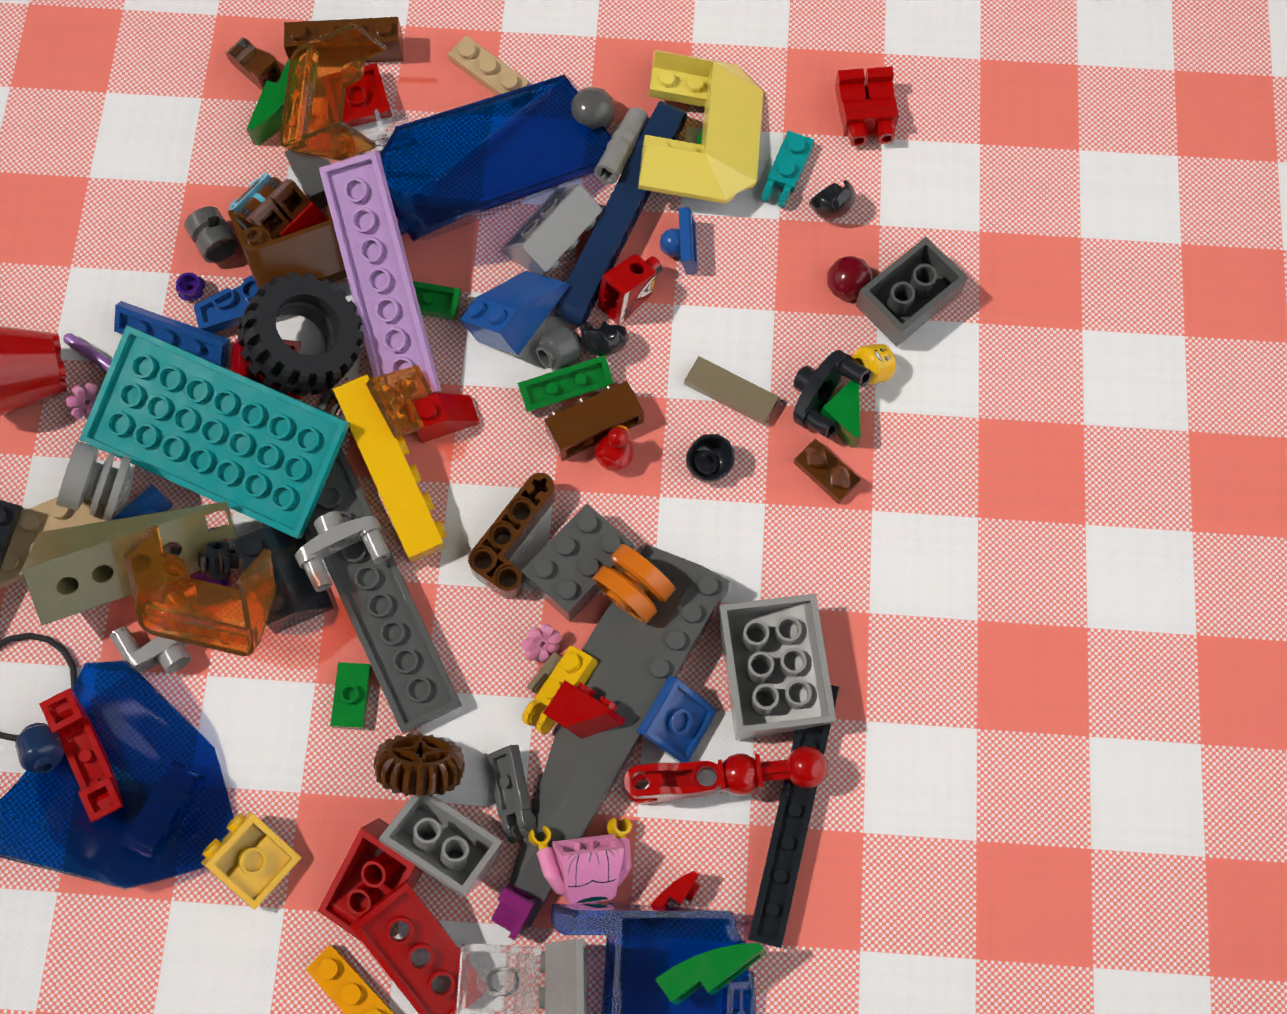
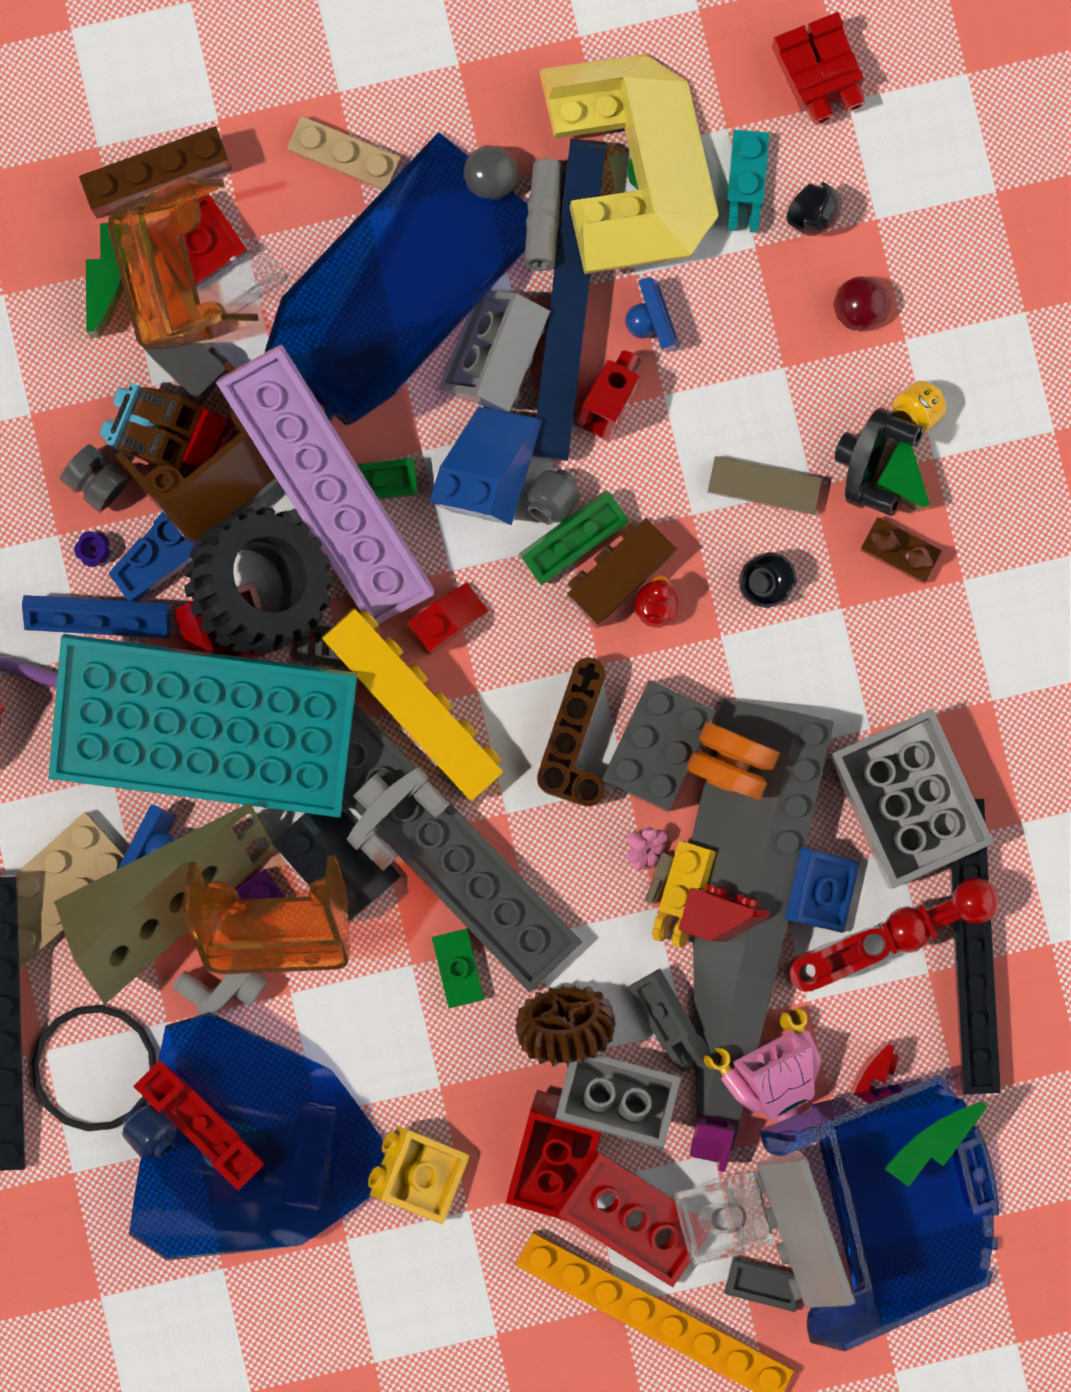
camera: 20 degrees left, 15 degrees up
(83, 400) = (32, 727): bright pink plant -> none
(93, 481) = (93, 826): light grey wheel -> none
(218, 560) = (262, 869): black gear -> none
(253, 62) = (53, 233): reddish brown leg -> none
(394, 396) = (394, 628): clear orange plate -> none
(604, 340) = (601, 469): black hair -> none
(911, 291) = (939, 304): dark grey brick -> none

